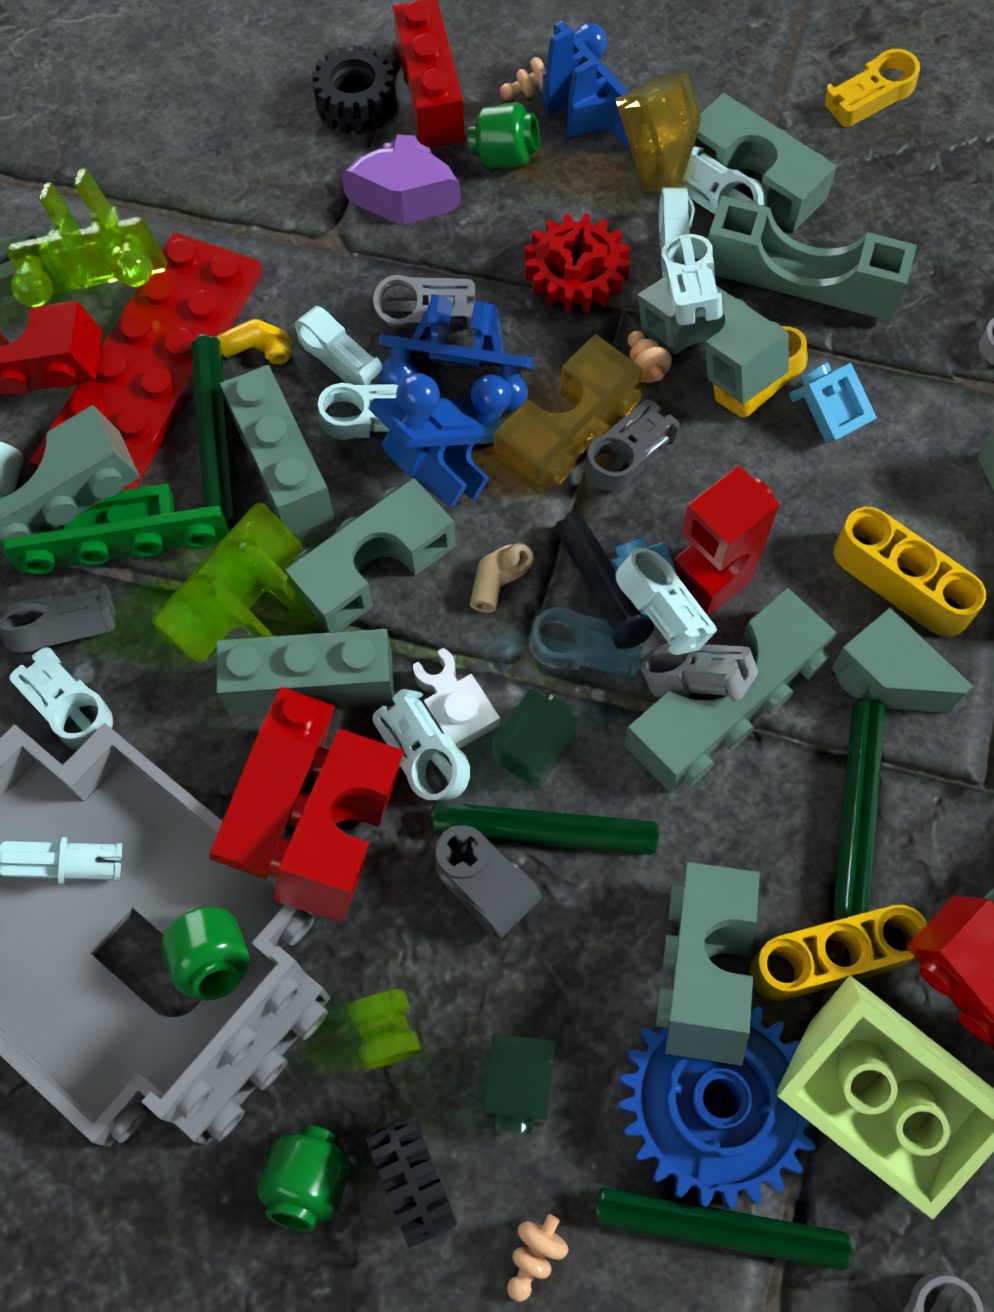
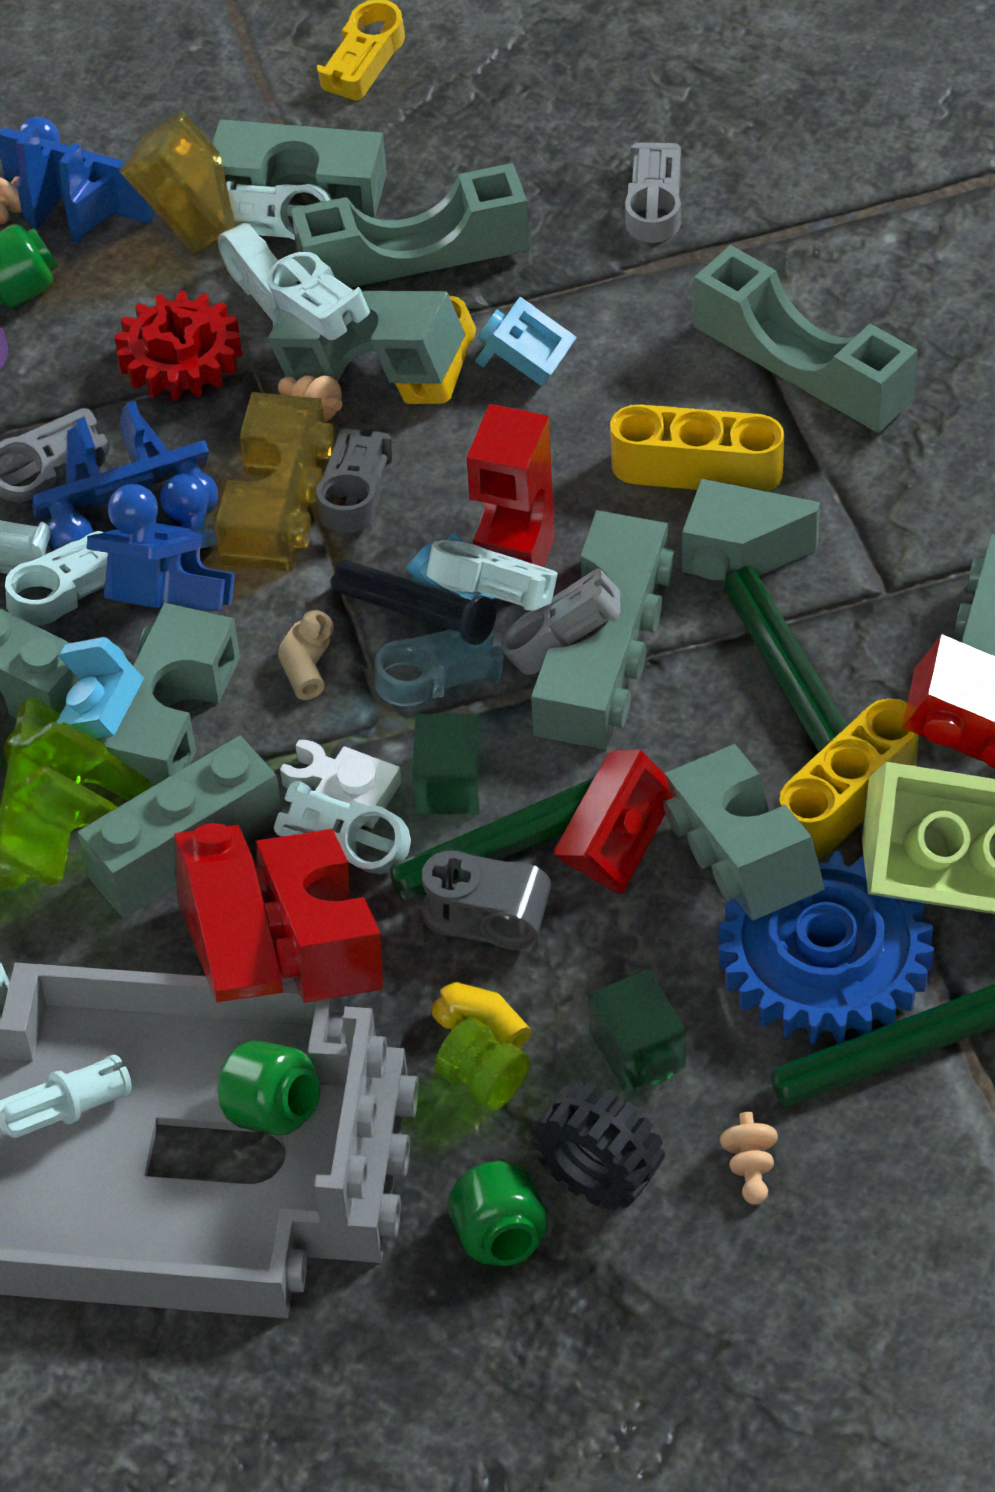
camera: 30 degrees left, 15 degrees down
(313, 533) = (103, 689): none -> medium azure bracket
(420, 969) = (489, 1007): none -> yellow arm
(628, 871) = (616, 819): none -> red slope

